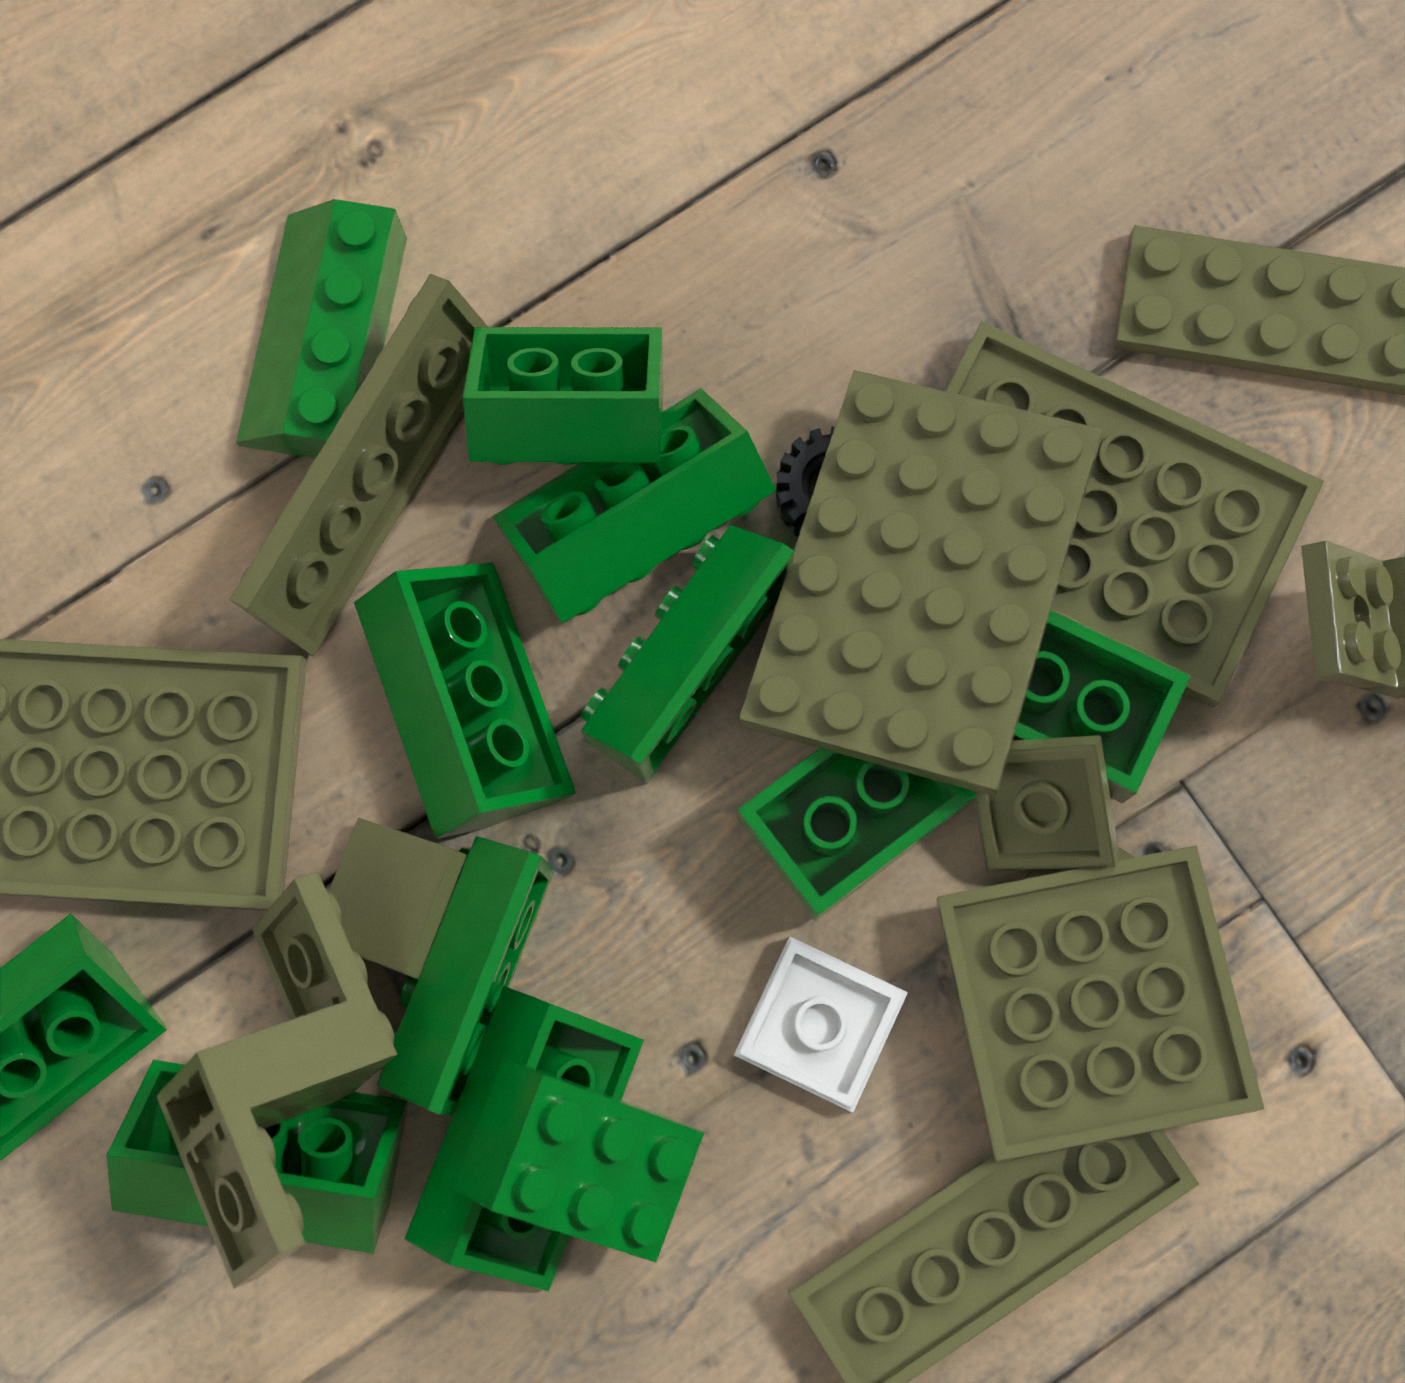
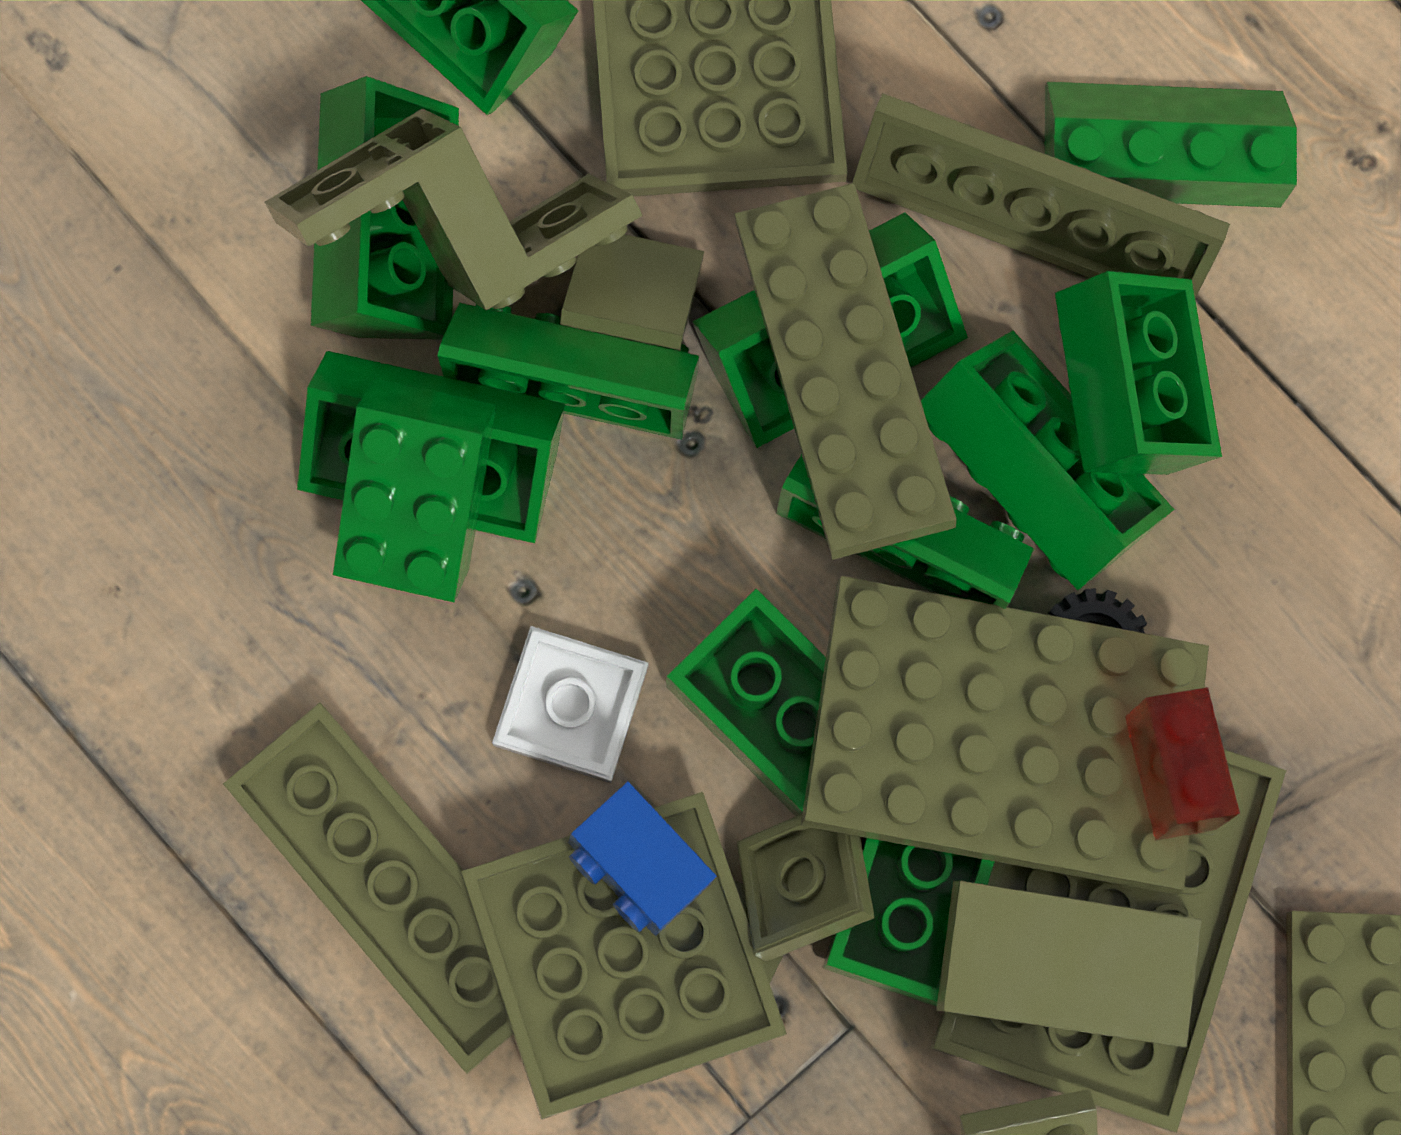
camera: 70 degrees right, 0 degrees up
(524, 682) = (844, 372): none -> olive plate
(985, 405) = (1182, 764): none -> clear red brick
(1010, 969) = (639, 860): none -> blue brick
(1159, 555) = (1069, 964): none -> olive tile

